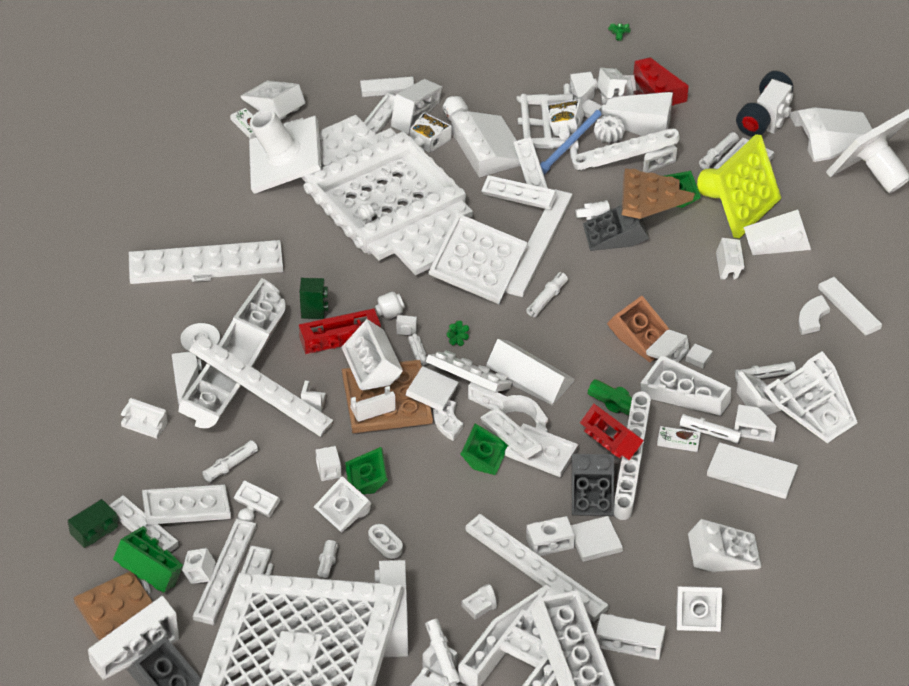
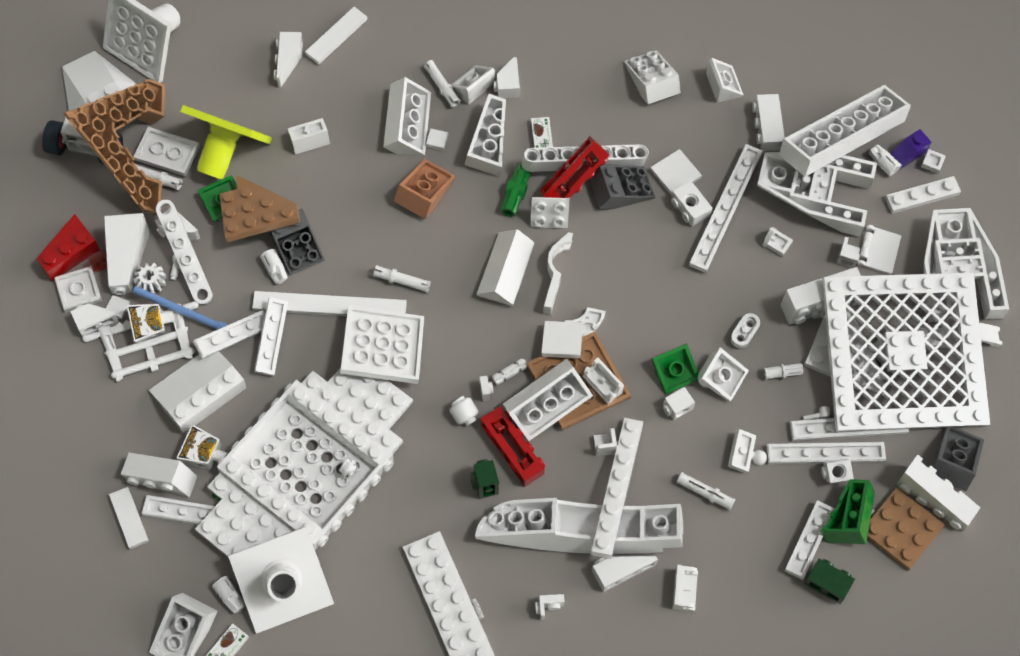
camera: 110 degrees left, 20 degrees up
(179, 320) = (552, 602): none -> white bracket
(186, 504) = (772, 510): white tile -> none
(195, 331) = (565, 564): white dish -> none
(444, 657) = (849, 246): white pin -> none
(453, 106) = (154, 434): white head -> none
(457, 333) = (478, 343): green plant -> none
(465, 369) = (530, 314): white plate -> none
(483, 450) = (614, 279): green slope -> none
(511, 433) = (591, 260): white tile -> none
(553, 457) = (596, 235): white plate -> none
(577, 412) = (549, 212): none -> white hinge
(609, 80) = (87, 284): white hinge -> none
(671, 345) = (443, 161): white panel -> none
(709, 428) = (524, 109): white pin -> none
(729, 335) = (407, 118): none -> white slope
(752, 83) = (98, 127): none -> medium nougat wedge
(752, 470) = (557, 74): white tile -> none
(778, 235) = (269, 100): white wedge -> none
(811, 314) = (357, 62): white tile -> none
(815, 398) = (464, 41): white wedge -> none
(829, 261) = (289, 54): none -> white slope

